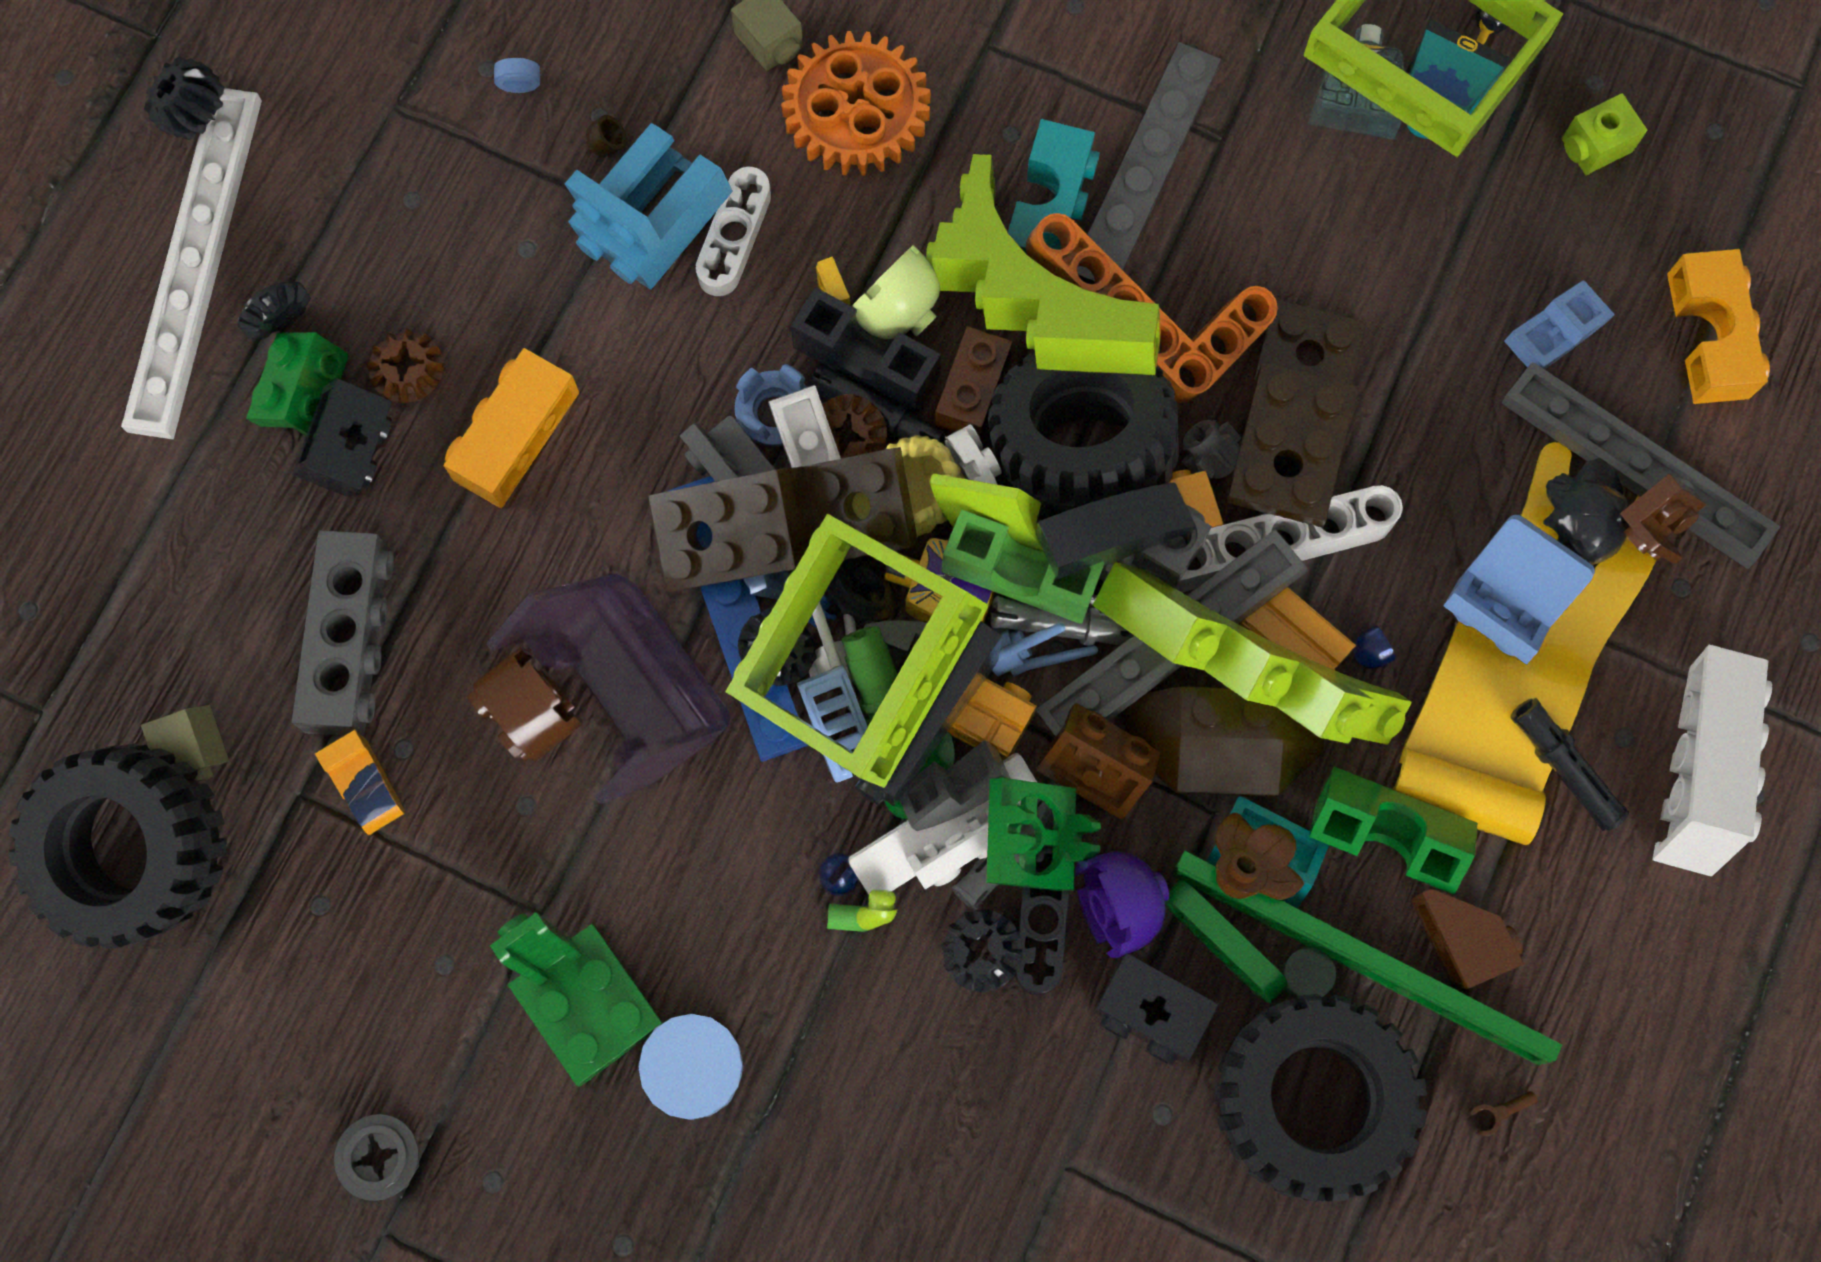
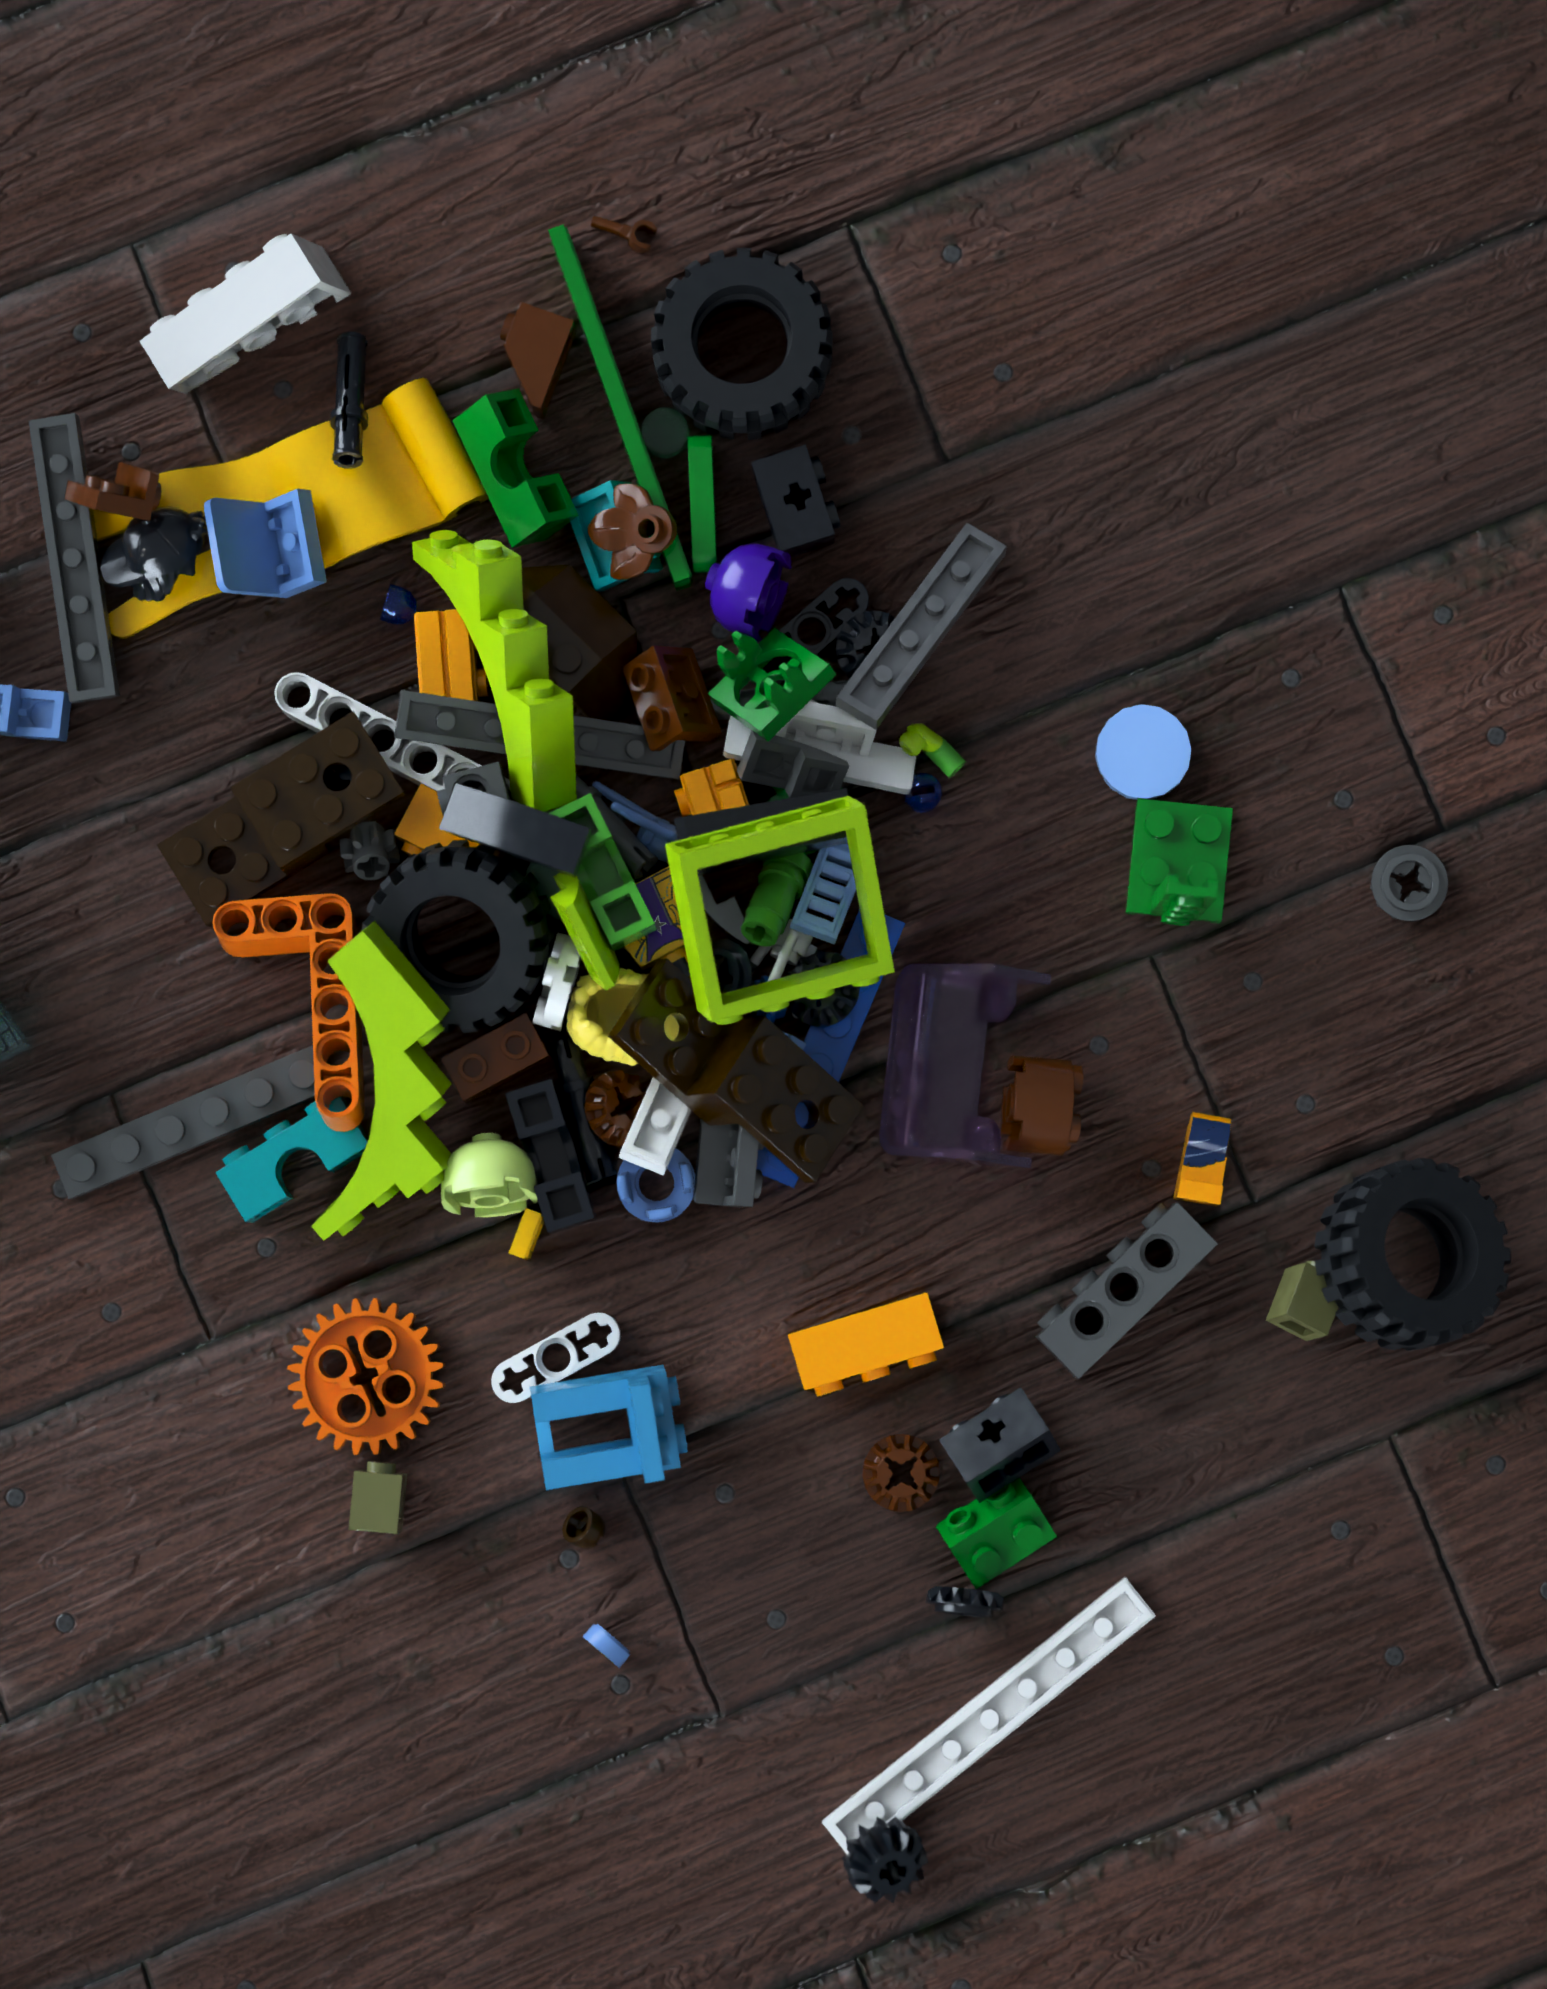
camera: 130 degrees left, 10 degrees up
(958, 997) = (921, 626): none -> flat silver plate

